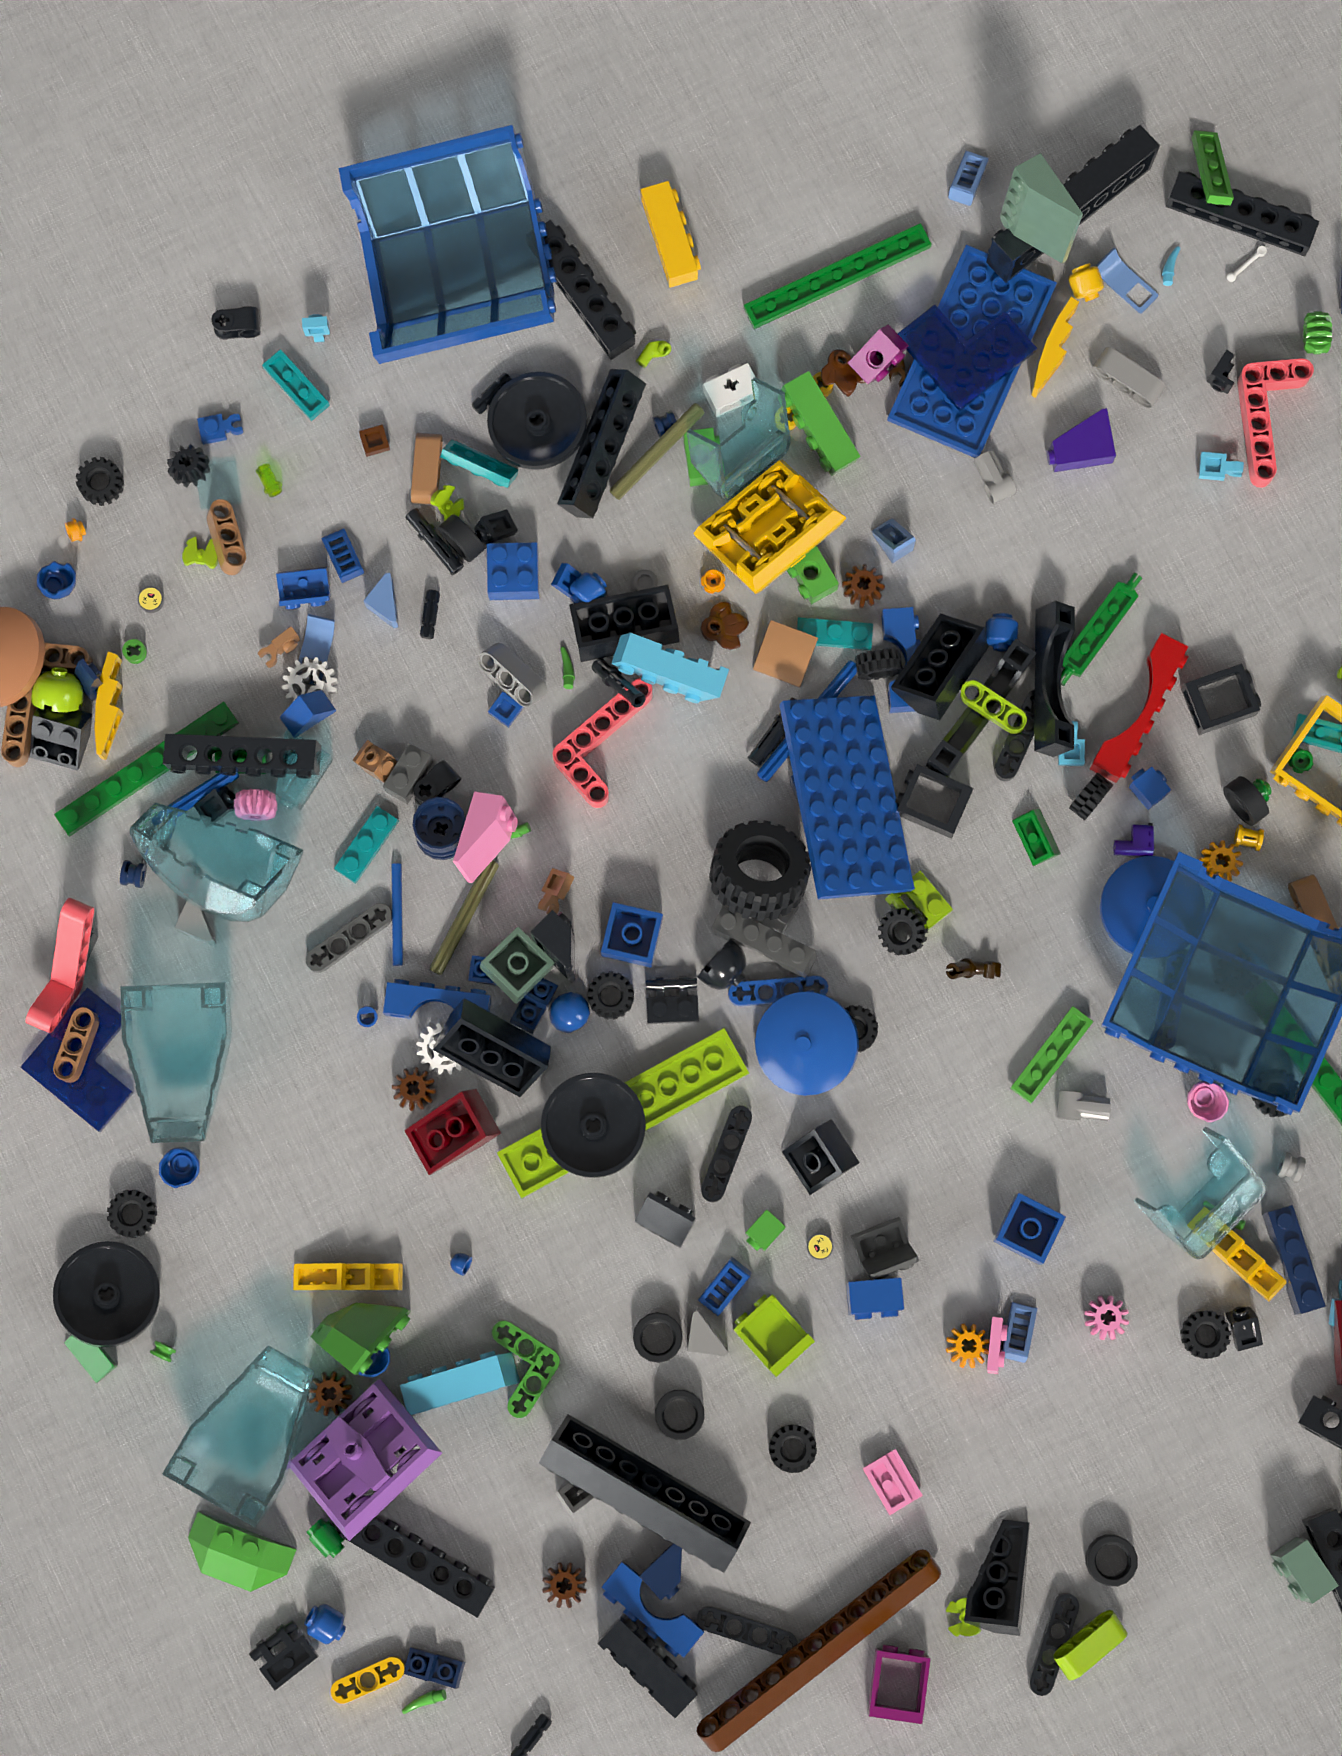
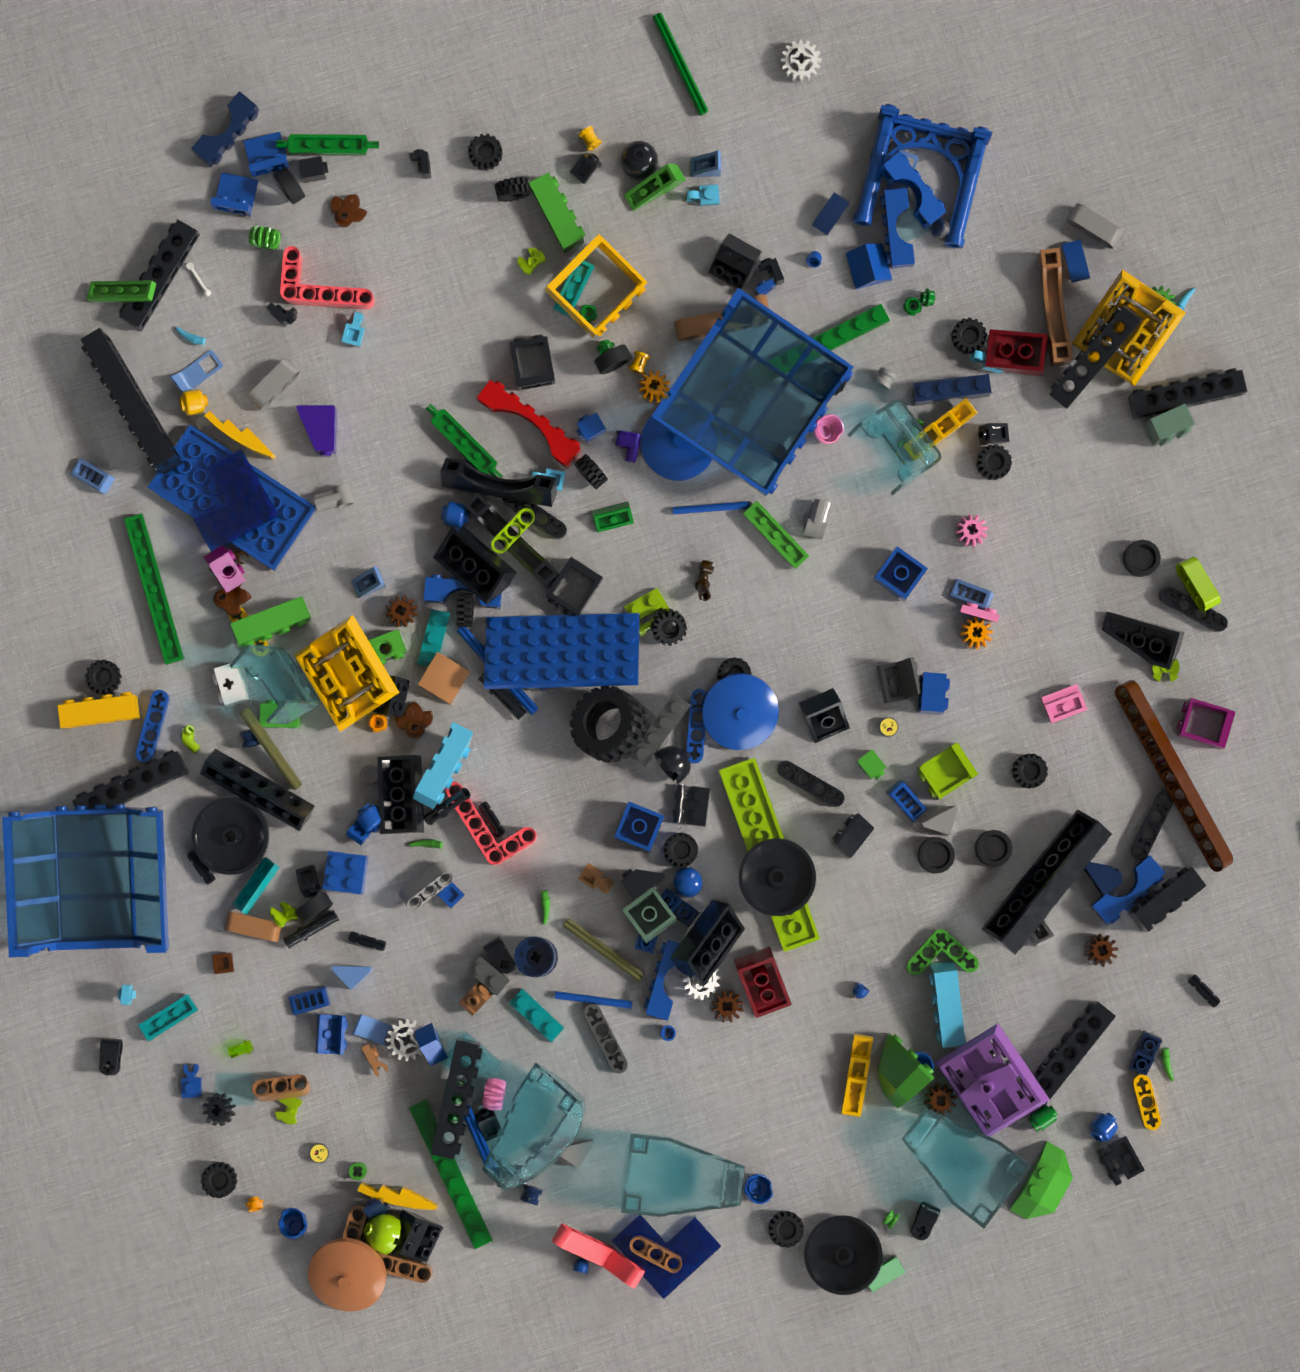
camera: 80 degrees left, 5 degrees up
(47, 953) = (581, 1265): none -> blue hinge
(170, 1400) = (926, 1217): none -> black piece
(484, 834) = (546, 924): bright pink slope -> none
(612, 745) = (491, 819): none -> black axle
(661, 308) = (149, 725): none -> blue beam
(714, 247) = (114, 677): none -> black tyre
(744, 599) = (396, 704): none -> black bracket
(1041, 209) = (145, 427): sand green slope -> none
(1072, 963) = (711, 507): none -> blue bar

